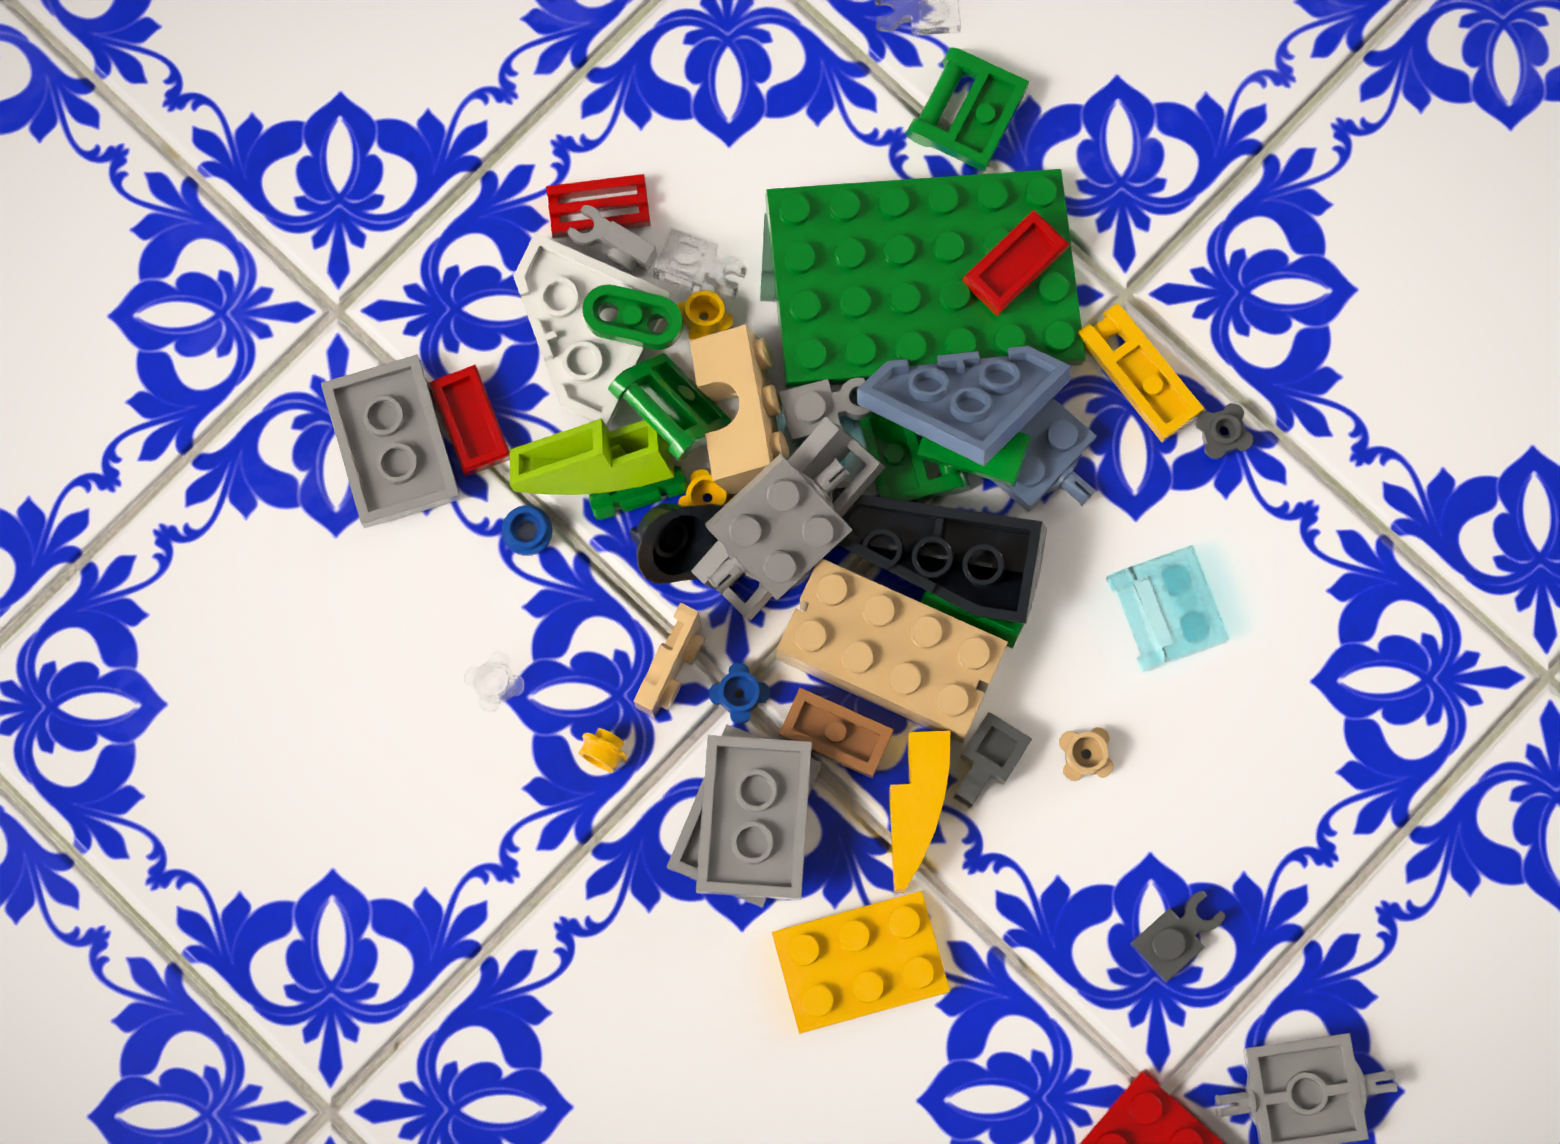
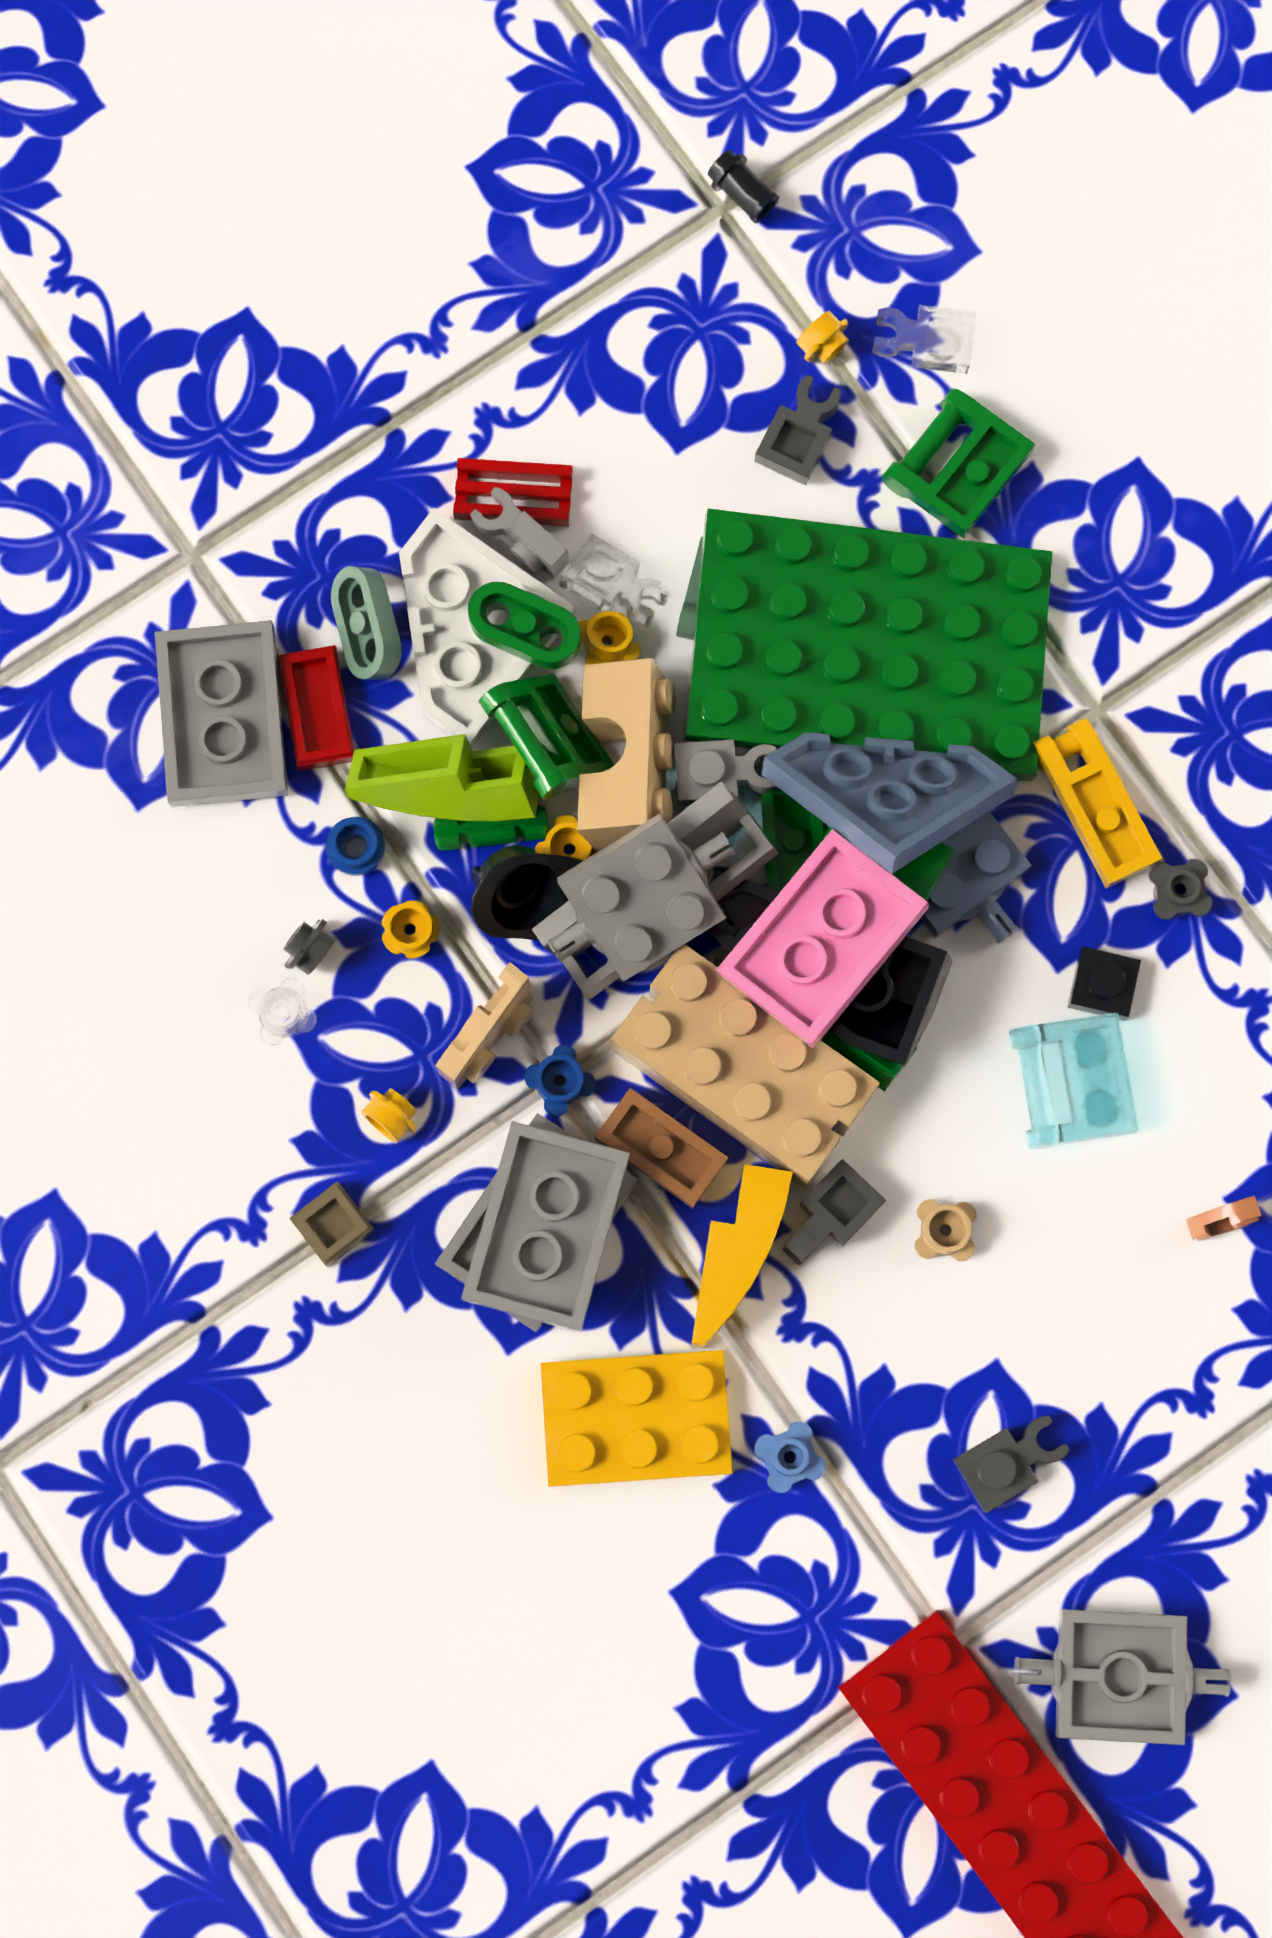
camera: 10 degrees right, 0 degrees up
(497, 340) = (366, 623): none -> sand green plate
(505, 622) = (308, 946): none -> dark grey plate
(573, 851) = (332, 1224): none -> dark tan tile
(577, 582) = (405, 914): none -> yellow plate
(829, 114) = (797, 437): none -> dark grey plate
(833, 25) = (823, 338): none -> yellow plate
(936, 531) = (822, 938): none -> bright pink plate
(999, 954) = (784, 1474): none -> medium blue plate
(1015, 263) = (977, 648): red tile -> none
(1176, 522) = (1103, 983): none -> black plate
(1315, 698) = (1224, 1219): none -> nougat tile

